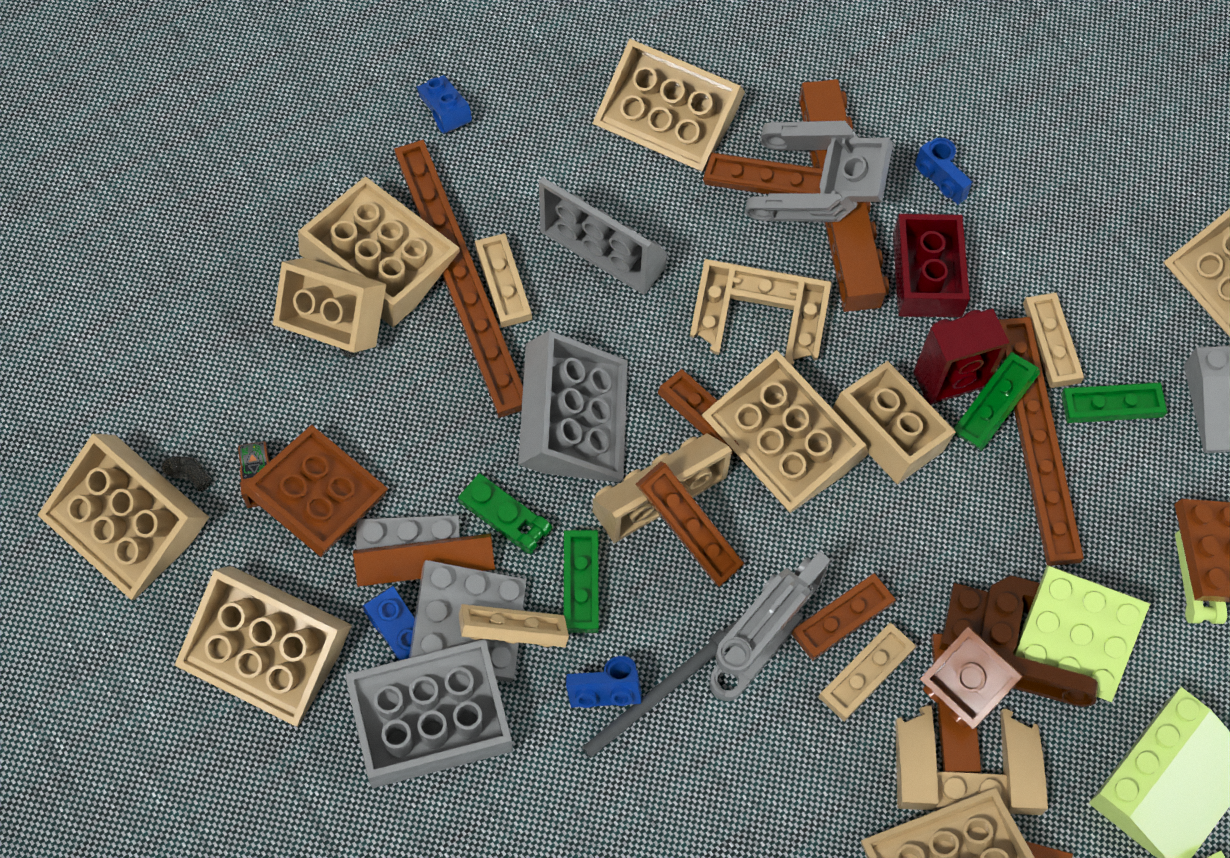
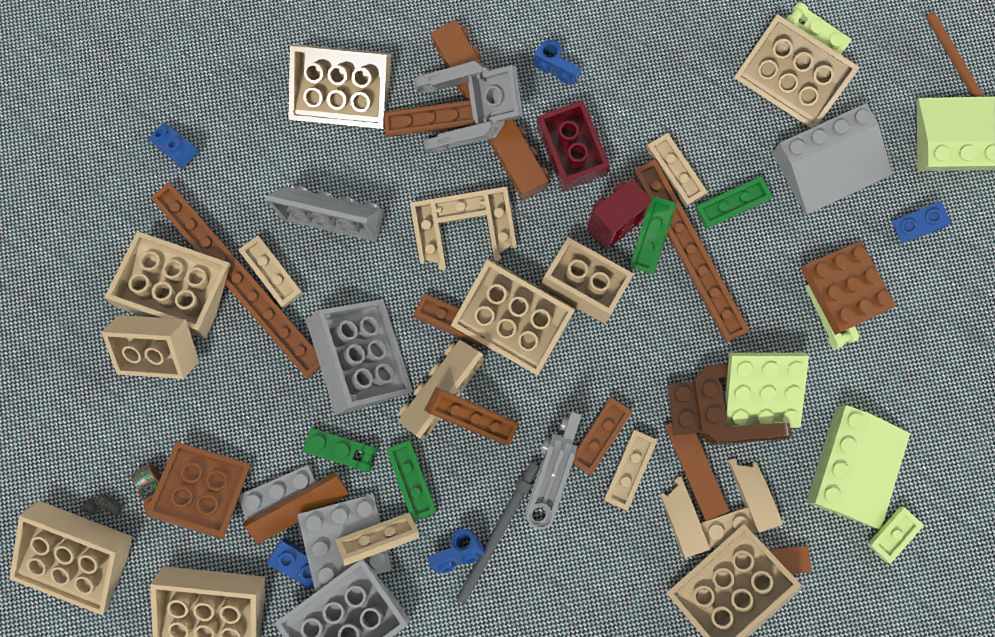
camera: 15 degrees left, 15 degrees up
(970, 679) = (704, 456): plate -> none

